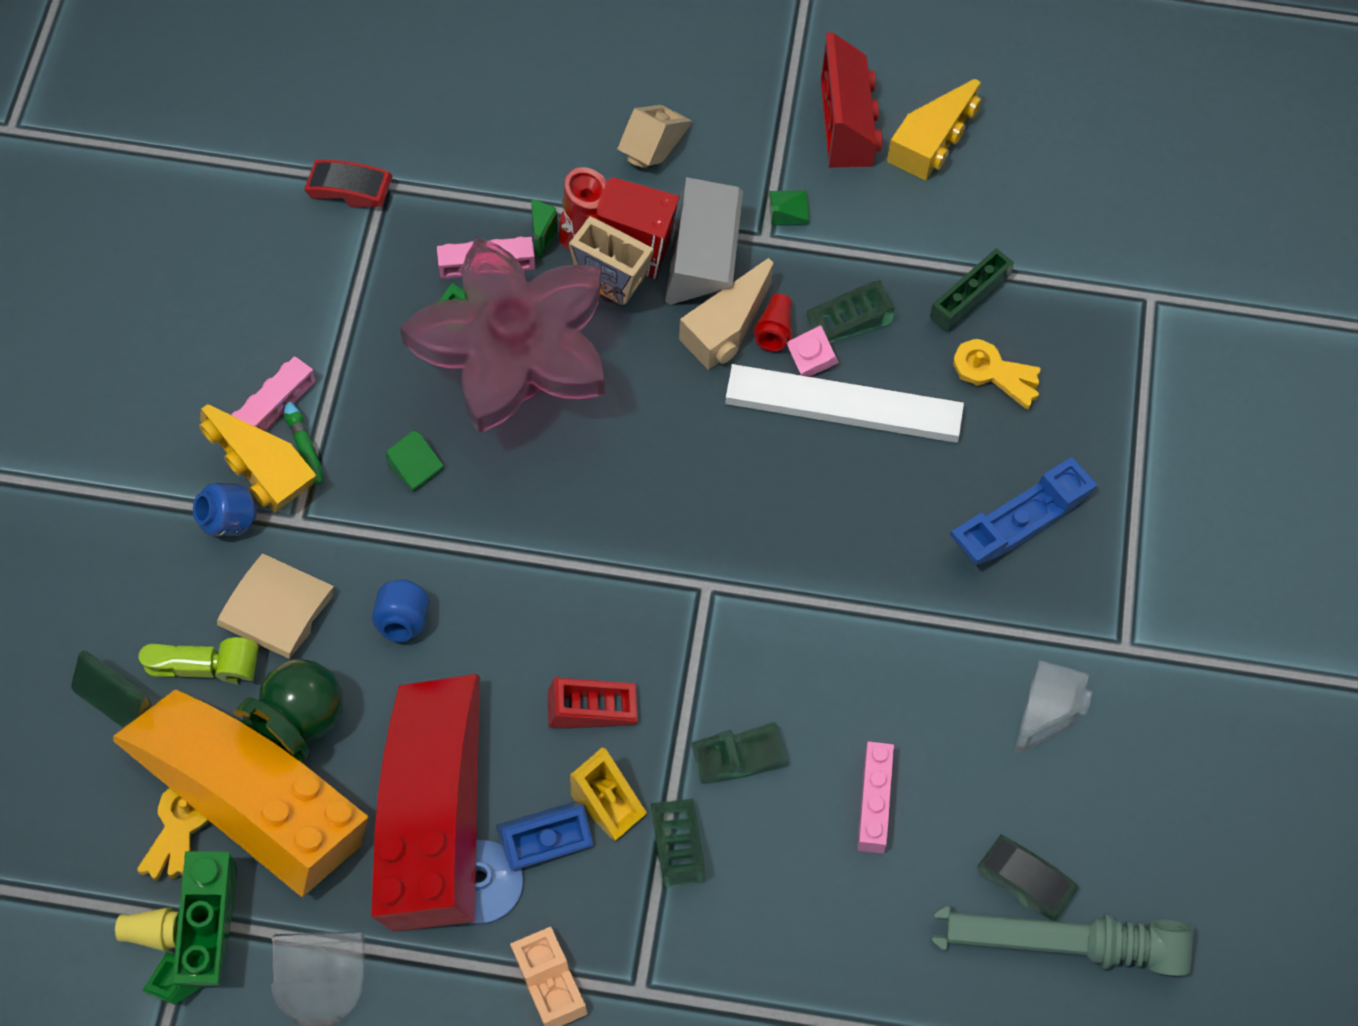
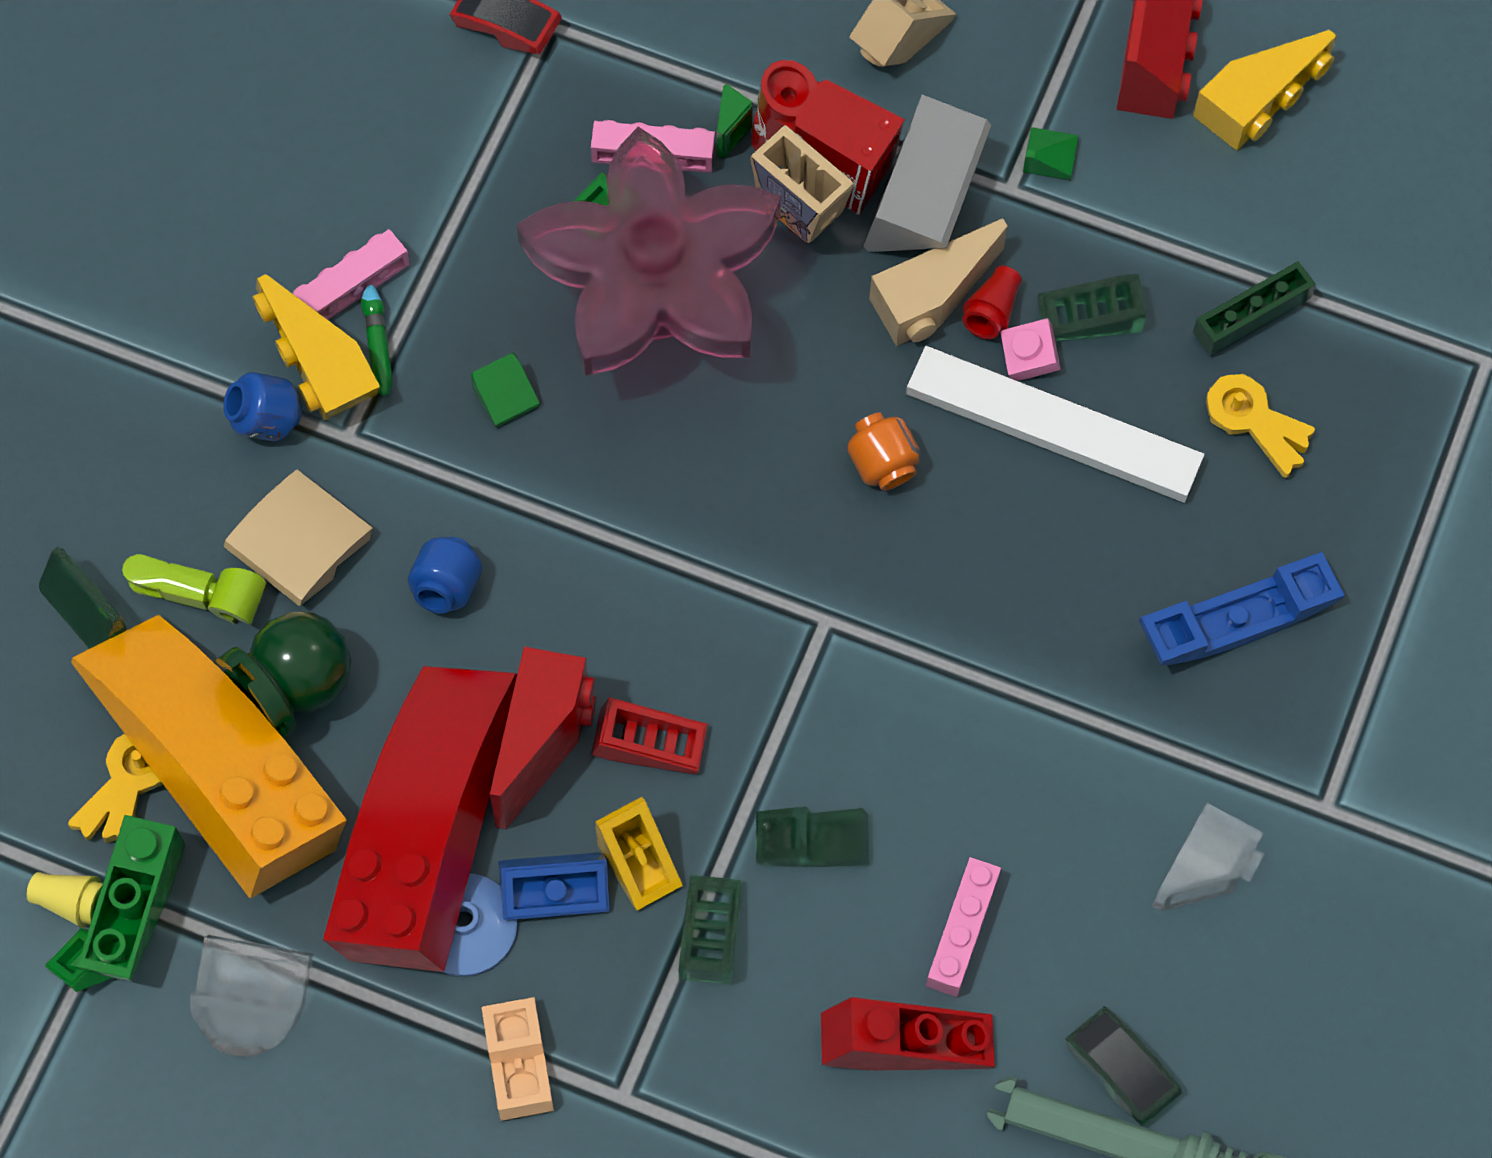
camera: 15 degrees right, 5 degrees up
(509, 700) = (542, 727): none -> red slope
(721, 448) = (884, 451): none -> orange head
(852, 893) = (904, 1037): none -> red slope

